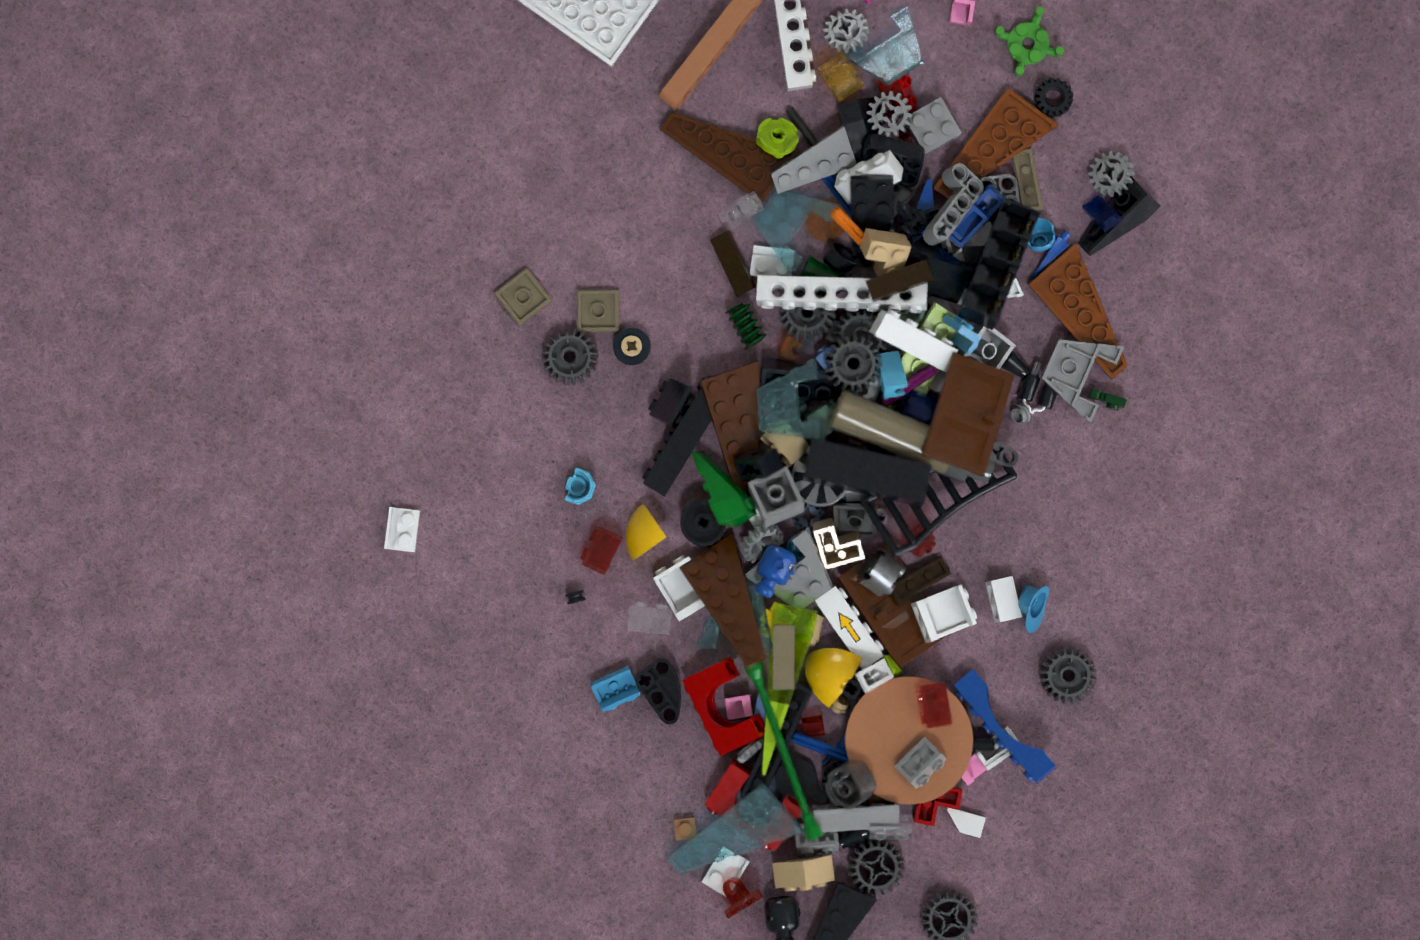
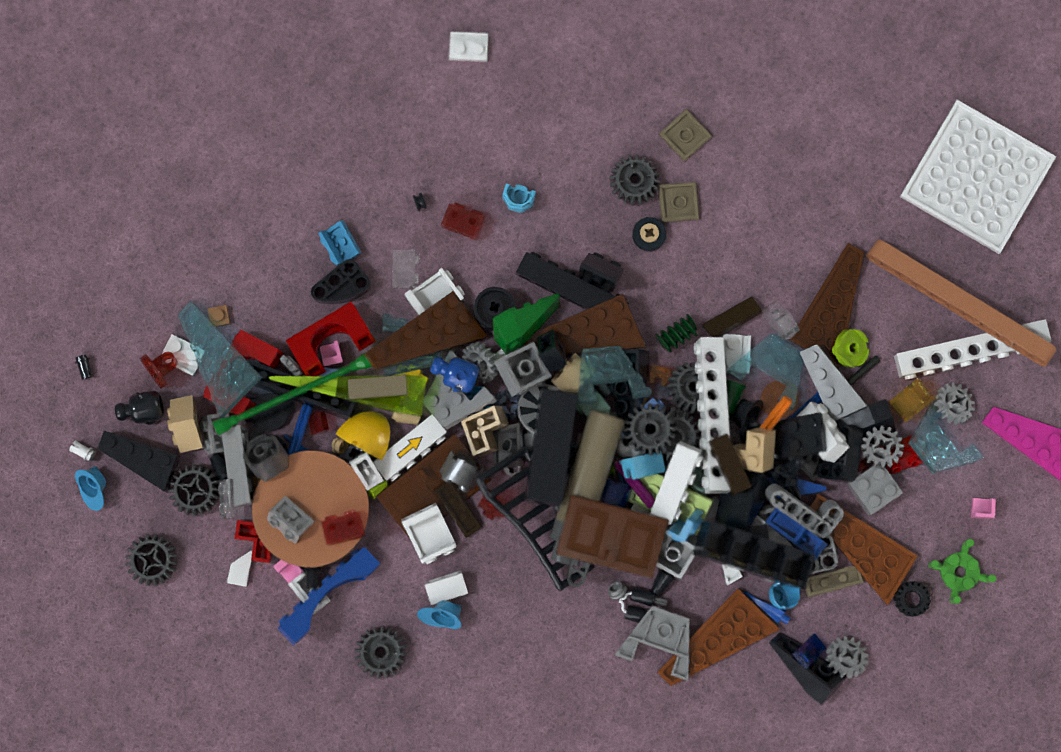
camera: 90 degrees right, 5 degrees down
(642, 533) = (482, 256): yellow brick -> none
(1113, 402) = (636, 674): dark green plate -> none

